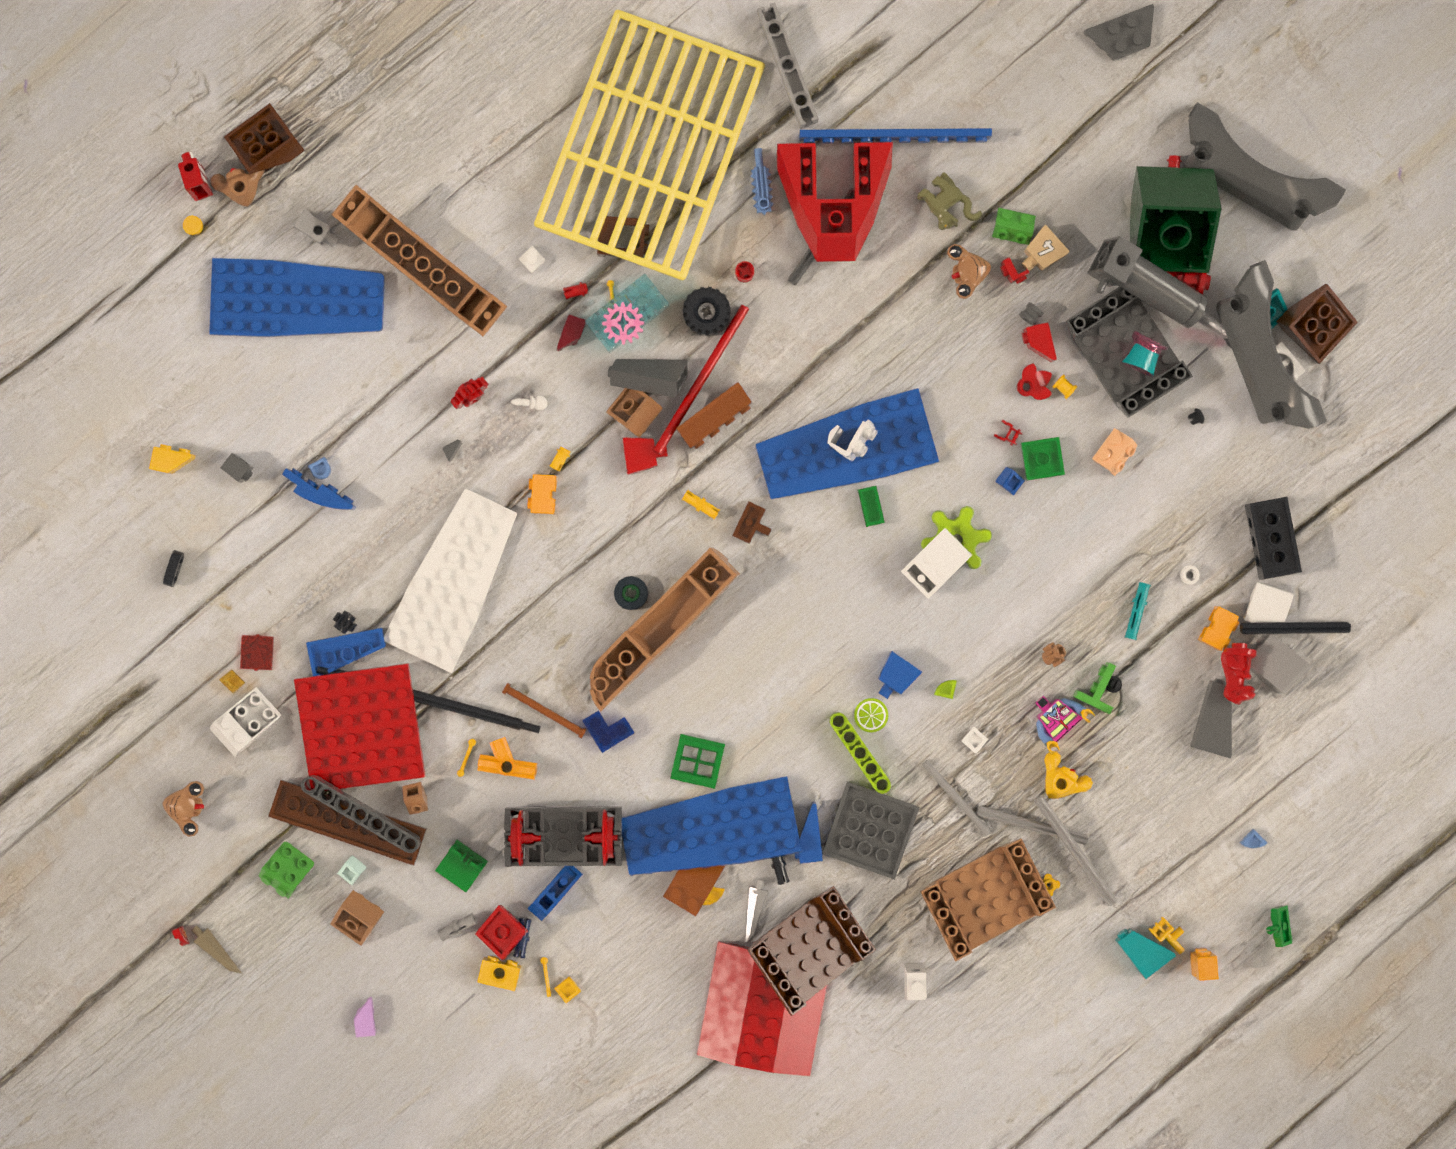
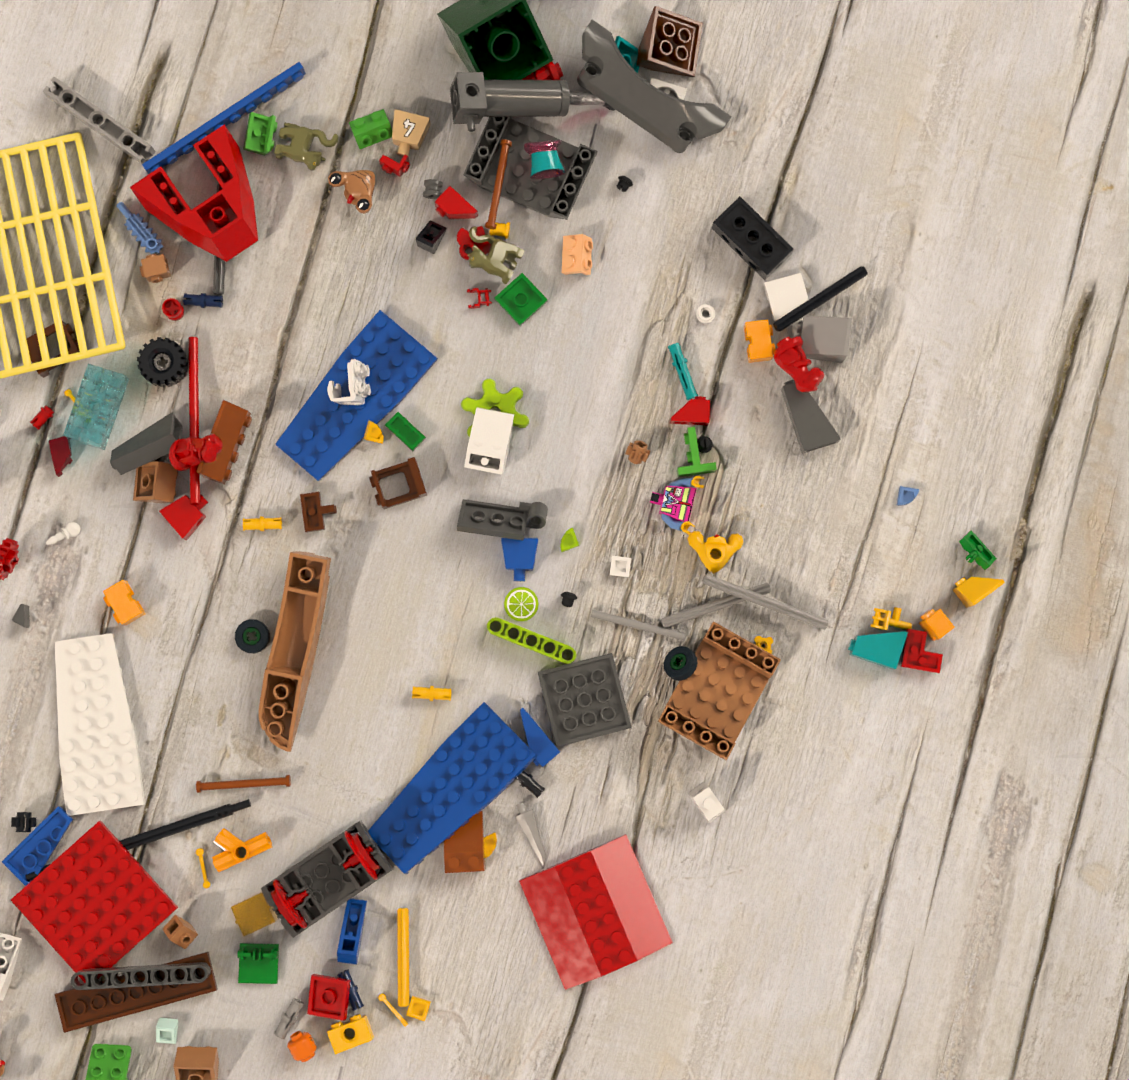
camera: 30 degrees left, 5 degrees down
(453, 957) = (301, 1046): none -> orange head
(482, 822) = (253, 914): none -> clear yellow piece
(560, 458) = (119, 563): yellow pin -> none
(582, 940) = (403, 956): none -> yellow axle
(605, 735) = (309, 769): clear blue plate -> none
(632, 323) = (102, 411): bright pink gear -> none
(686, 410) = (193, 450): none -> red animal
(701, 744) = (395, 723): green piece -> none
(748, 740) = (431, 693): none -> yellow pin
(752, 225) = (155, 268): none -> medium nougat brick
(774, 280) = (203, 300): none -> dark blue pin
(810, 949) = (599, 833): slope -> none
(843, 490) = (373, 433): none -> yellow tile
(851, 551) = (413, 477): none -> reddish brown window
(913, 641) = (512, 523): none -> dark grey hinge
(913, 738) = (568, 599): none -> black piece
(917, 168) = (260, 133): none -> bright green bracket
(964, 849) = (687, 666): none -> black bush
(1003, 354) = (430, 236): none -> black slope
(1010, 480) = (506, 335): blue slope -> none
(1048, 408) = (497, 255): none -> olive animal
(1090, 348) = (498, 184): none -> dark orange bar
(1123, 652) = (693, 412): none -> red slope
(1169, 978) = (915, 656): none -> red plate
(1255, 958) = (974, 589): none -> yellow slope

